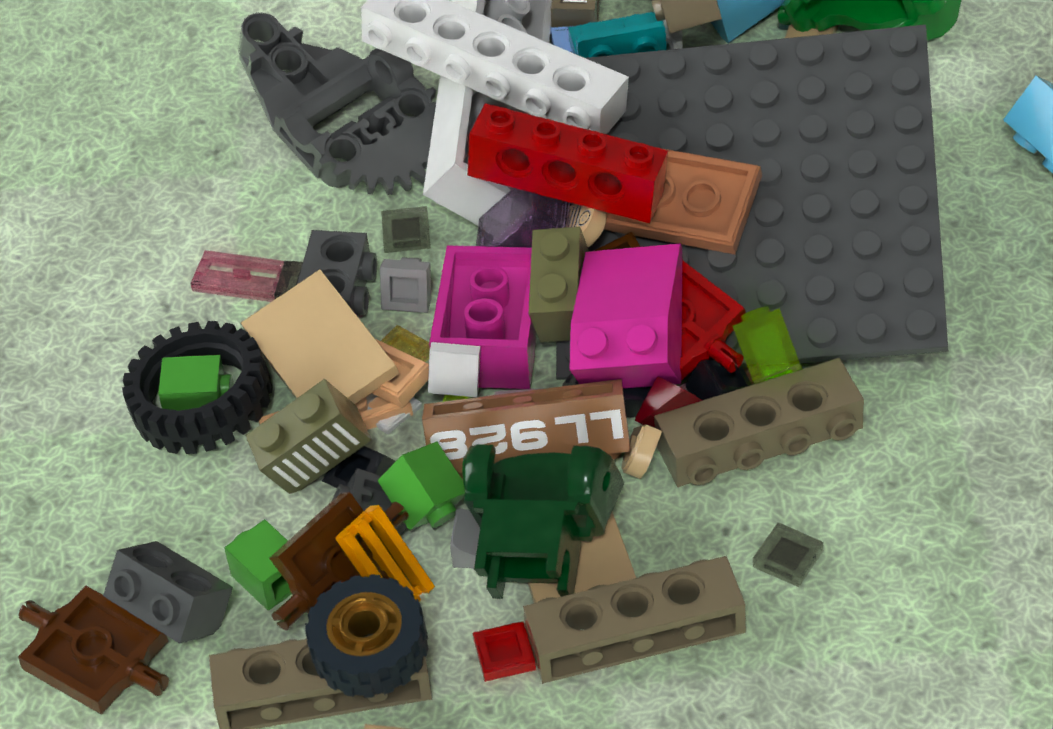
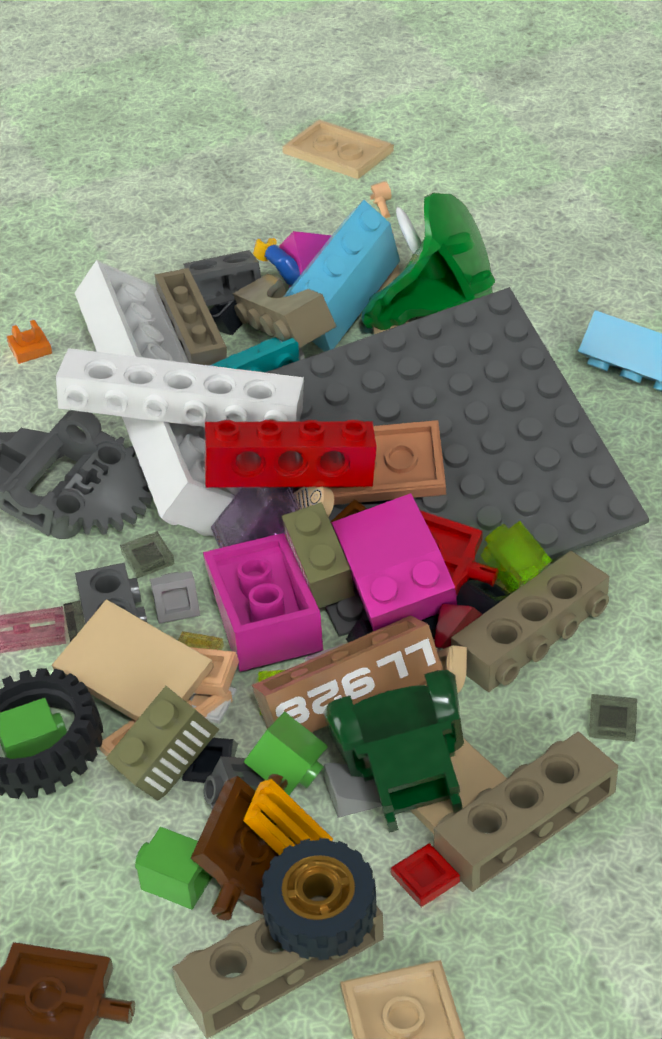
camera: 25 degrees left, 5 degrees down
(167, 591) = (98, 921): dark grey brick -> none
(454, 369) = (262, 649): white tile -> none

